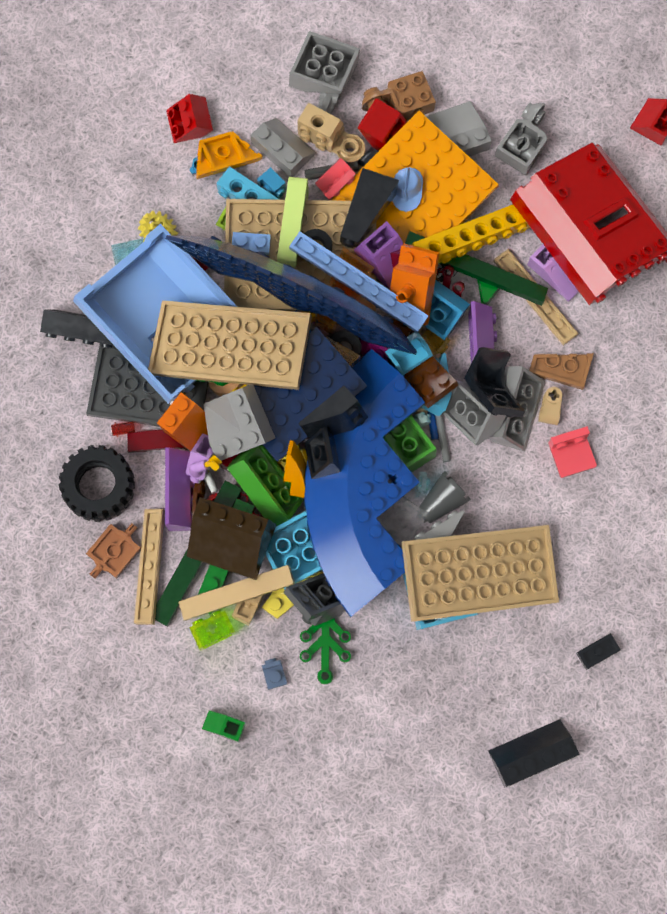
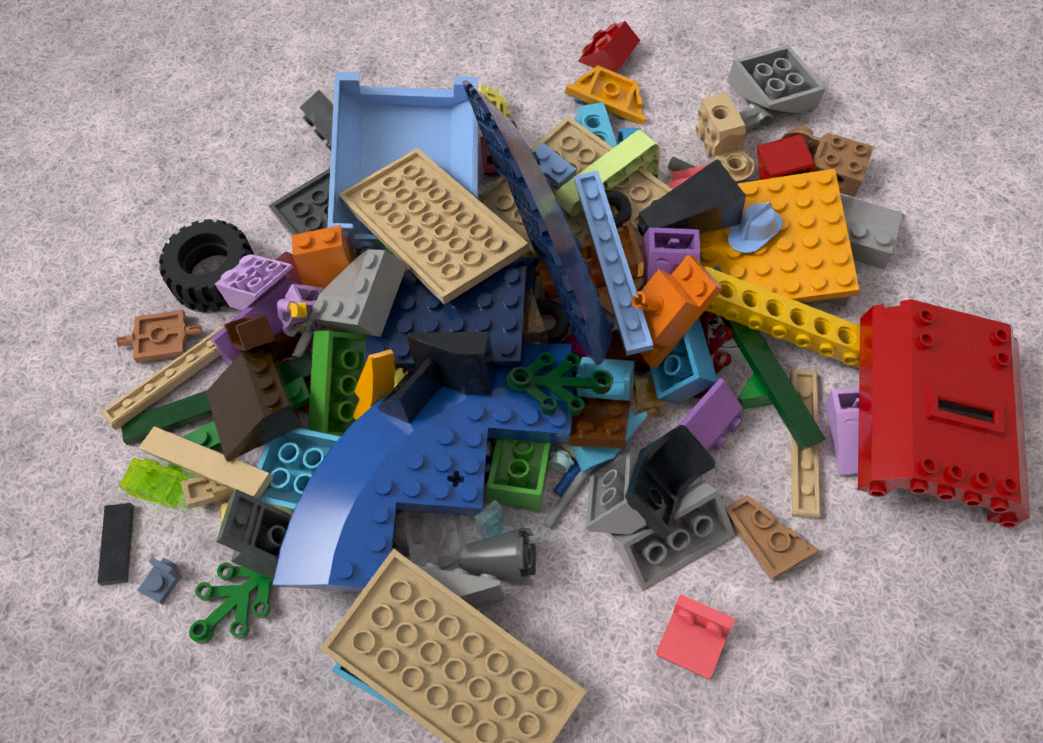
camera: 50 degrees right, 15 degrees down
(122, 428) = (282, 241): clear red pin -> none
(152, 468) = (250, 280): none -> lavender slope
(188, 500) = (249, 332): none -> reddish brown panel
(224, 726) = (58, 588): green slope -> none
(226, 679) = (115, 544): none -> black tile
(281, 146) = (671, 122): light grey slope -> none
(395, 381) = (556, 383): none -> dark green plant
(524, 140) = (932, 276): light grey brick -> none
(550, 409) = (711, 567): tan piece -> none

